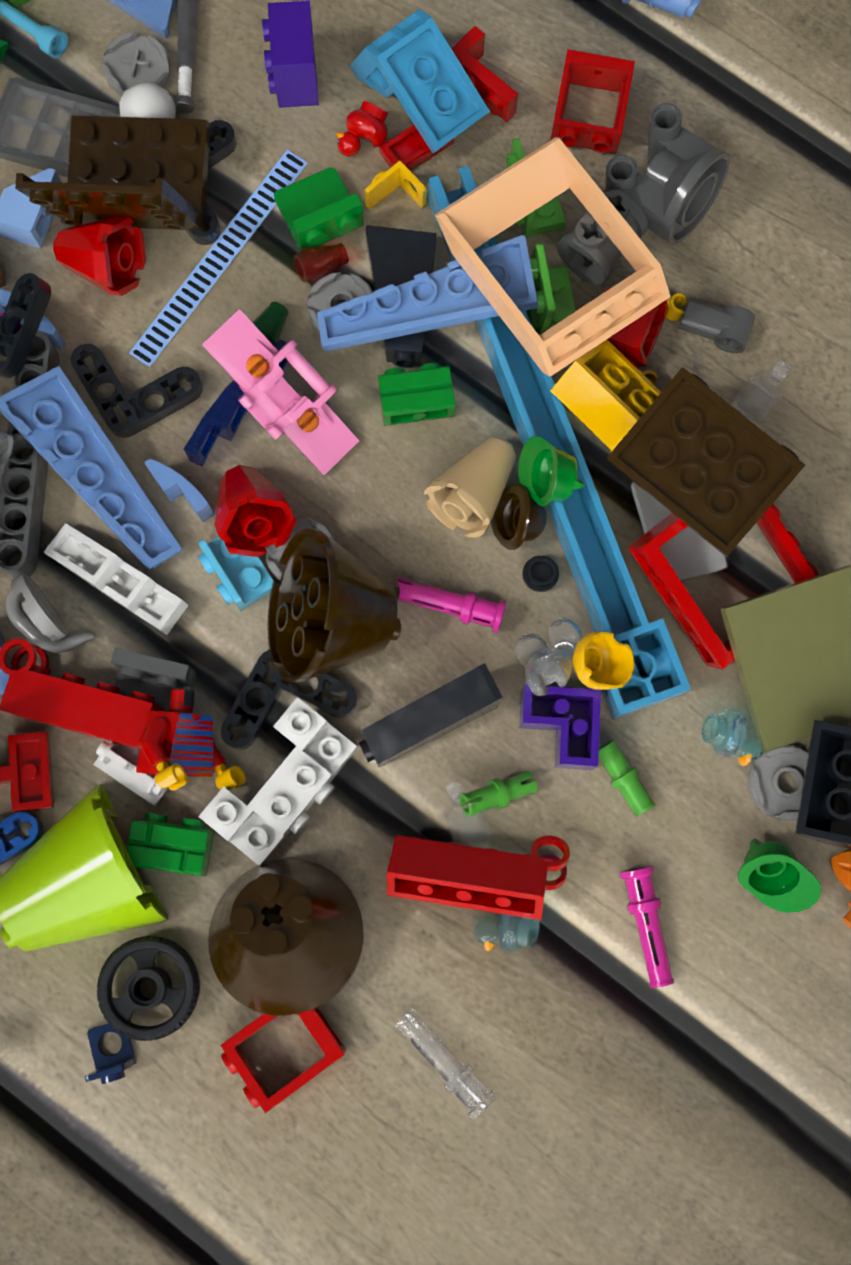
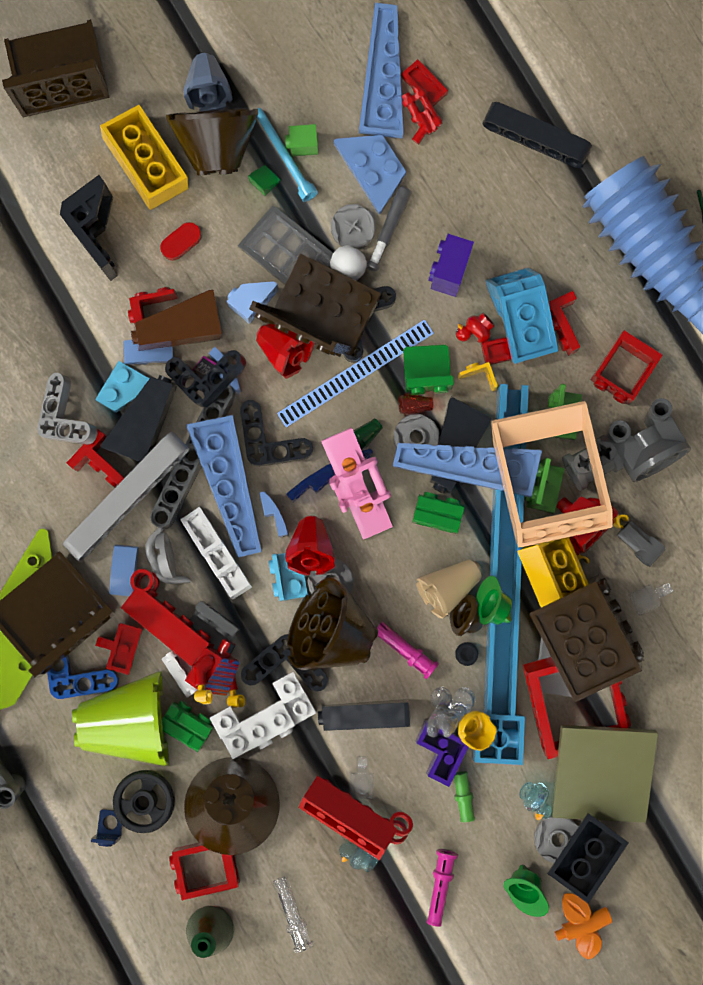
camera: 25 degrees right, 5 degrees up
(329, 1144) = (209, 931): none -> dark green cone
(498, 793) = (386, 775): bright green pin -> none

